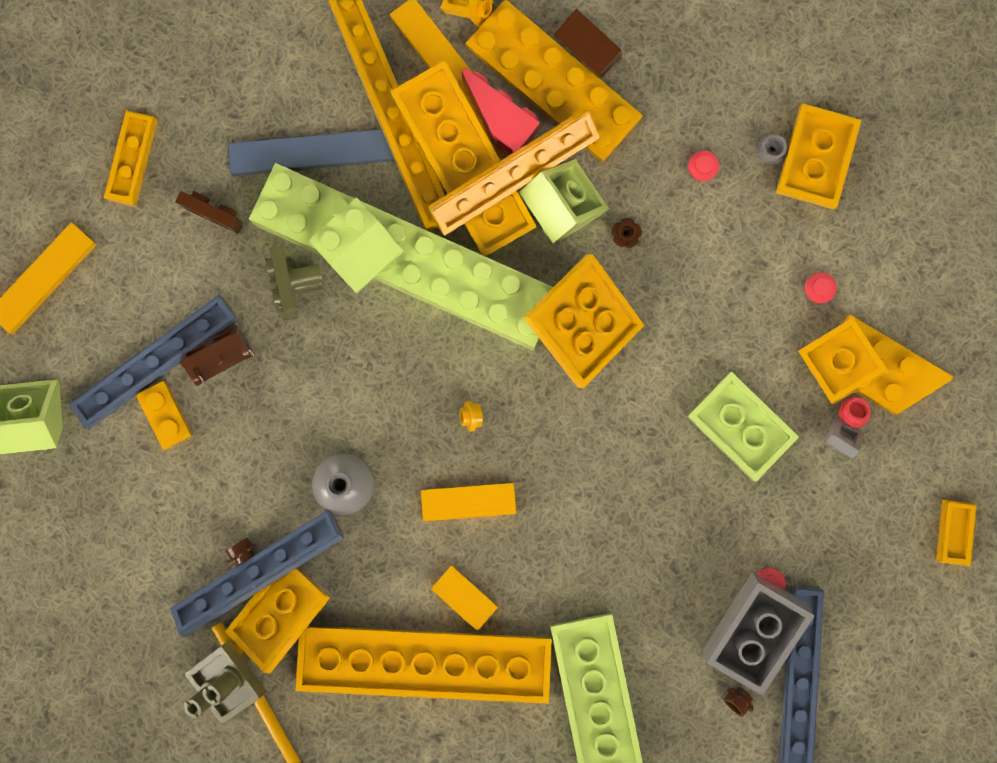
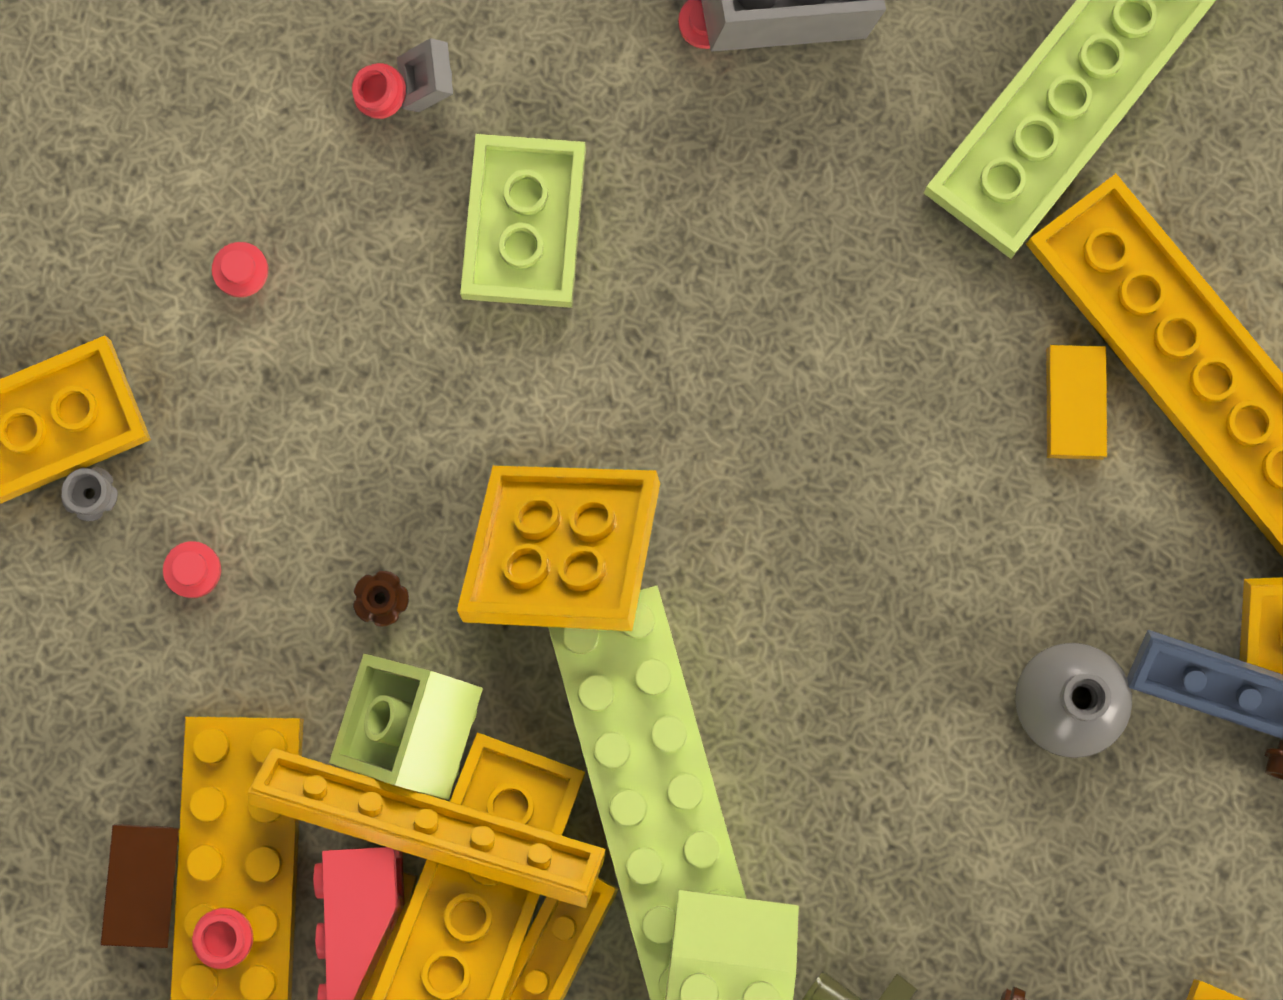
camera: 130 degrees left, 5 degrees down
(468, 502) = (944, 505): yellow tile -> none
(471, 416) = (824, 599): yellow plate -> none
(538, 58) = (222, 938): none -> coral plate
(843, 361) = (321, 156): yellow plate -> none
(908, 377) = (283, 96): yellow wing -> none

